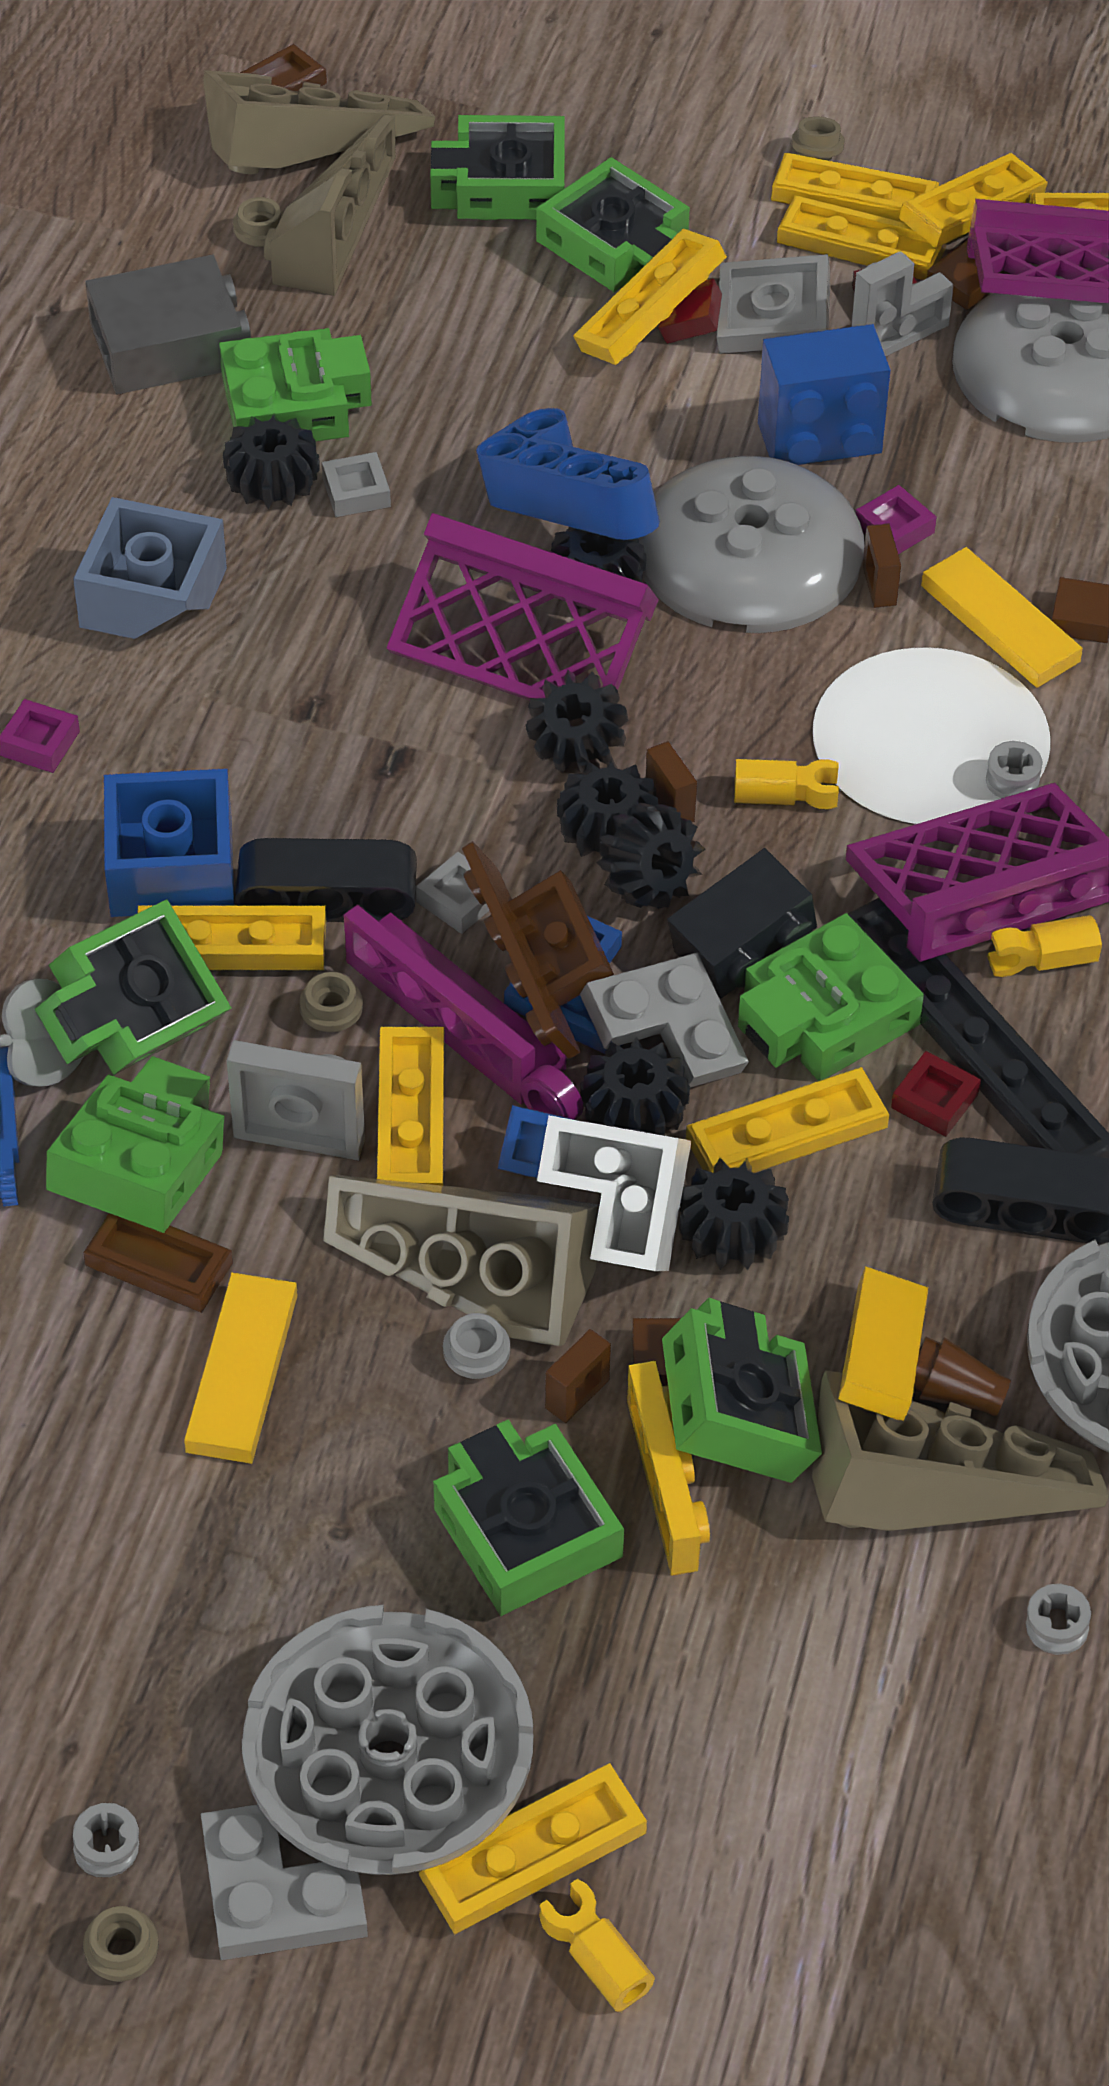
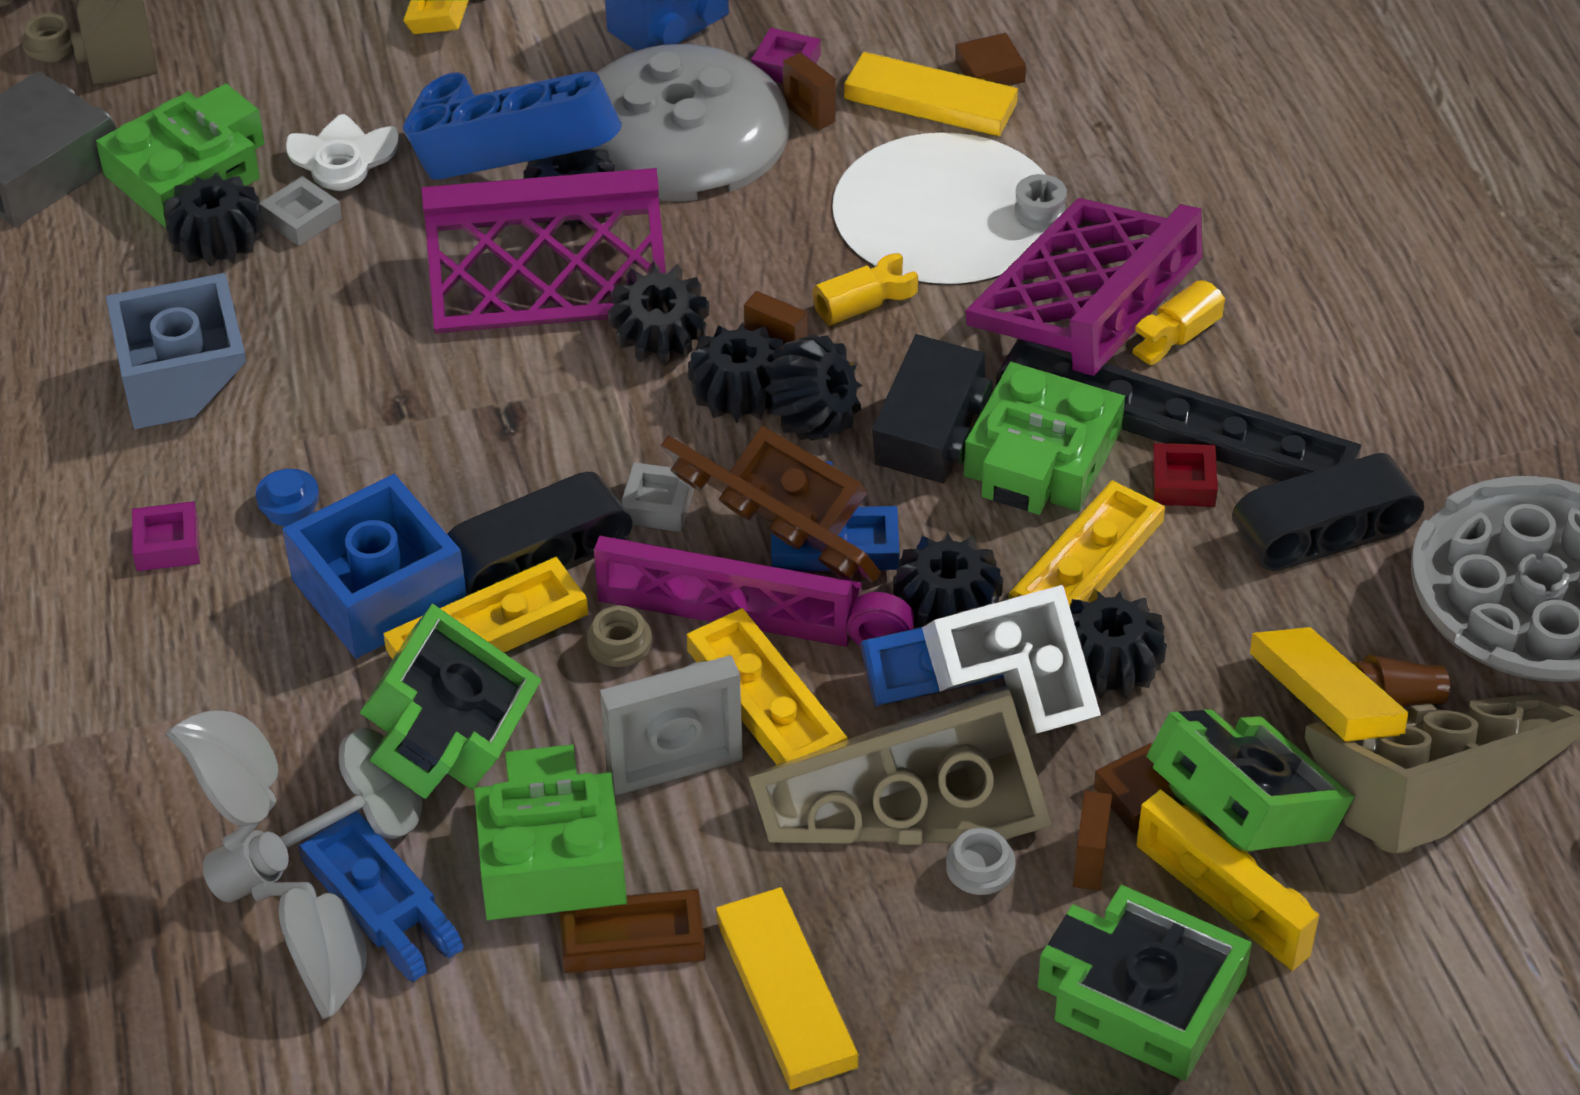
camera: 30 degrees left, 5 degrees down
(157, 745) = (287, 496): none -> blue plate
(428, 444) = (342, 152): none -> white plate
(671, 1001) = (924, 497): light grey plate -> none

